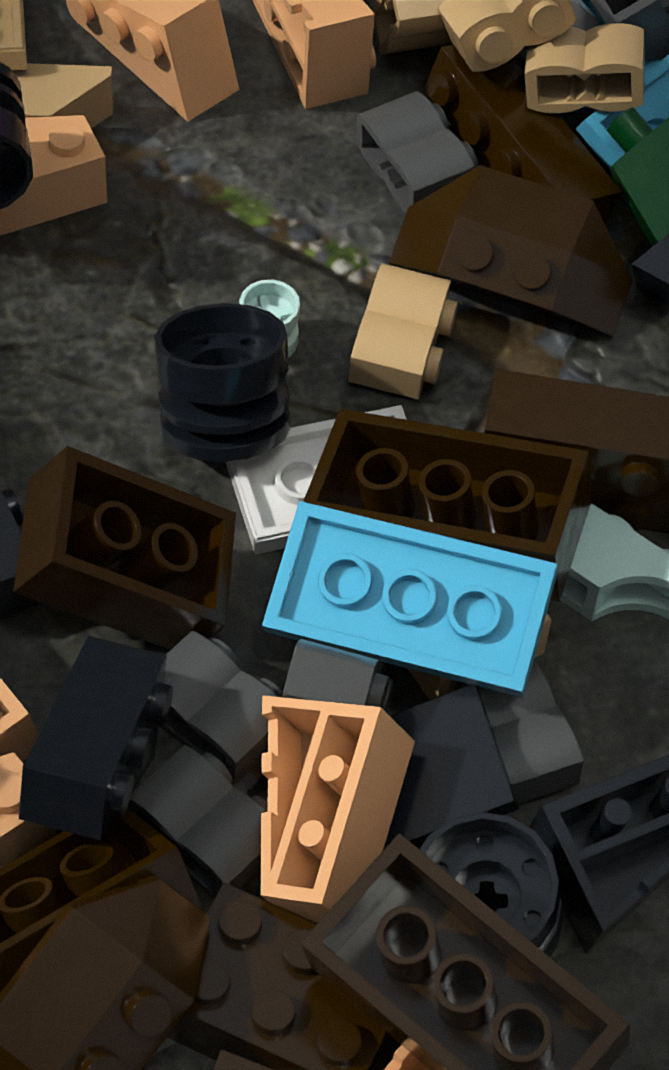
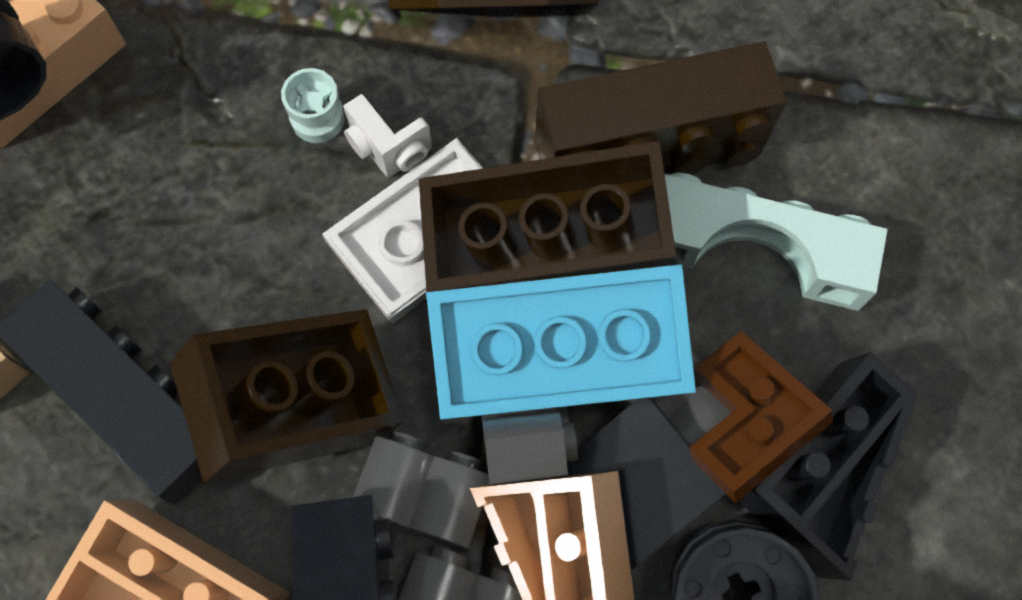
camera: 20 degrees left, 15 degrees up
(223, 381) = (301, 186): black wheel -> none
(324, 386) = (373, 137): none -> white bracket
(401, 330) = (428, 68): tan brick -> none
(581, 744) = (767, 421): none -> reddish brown plate

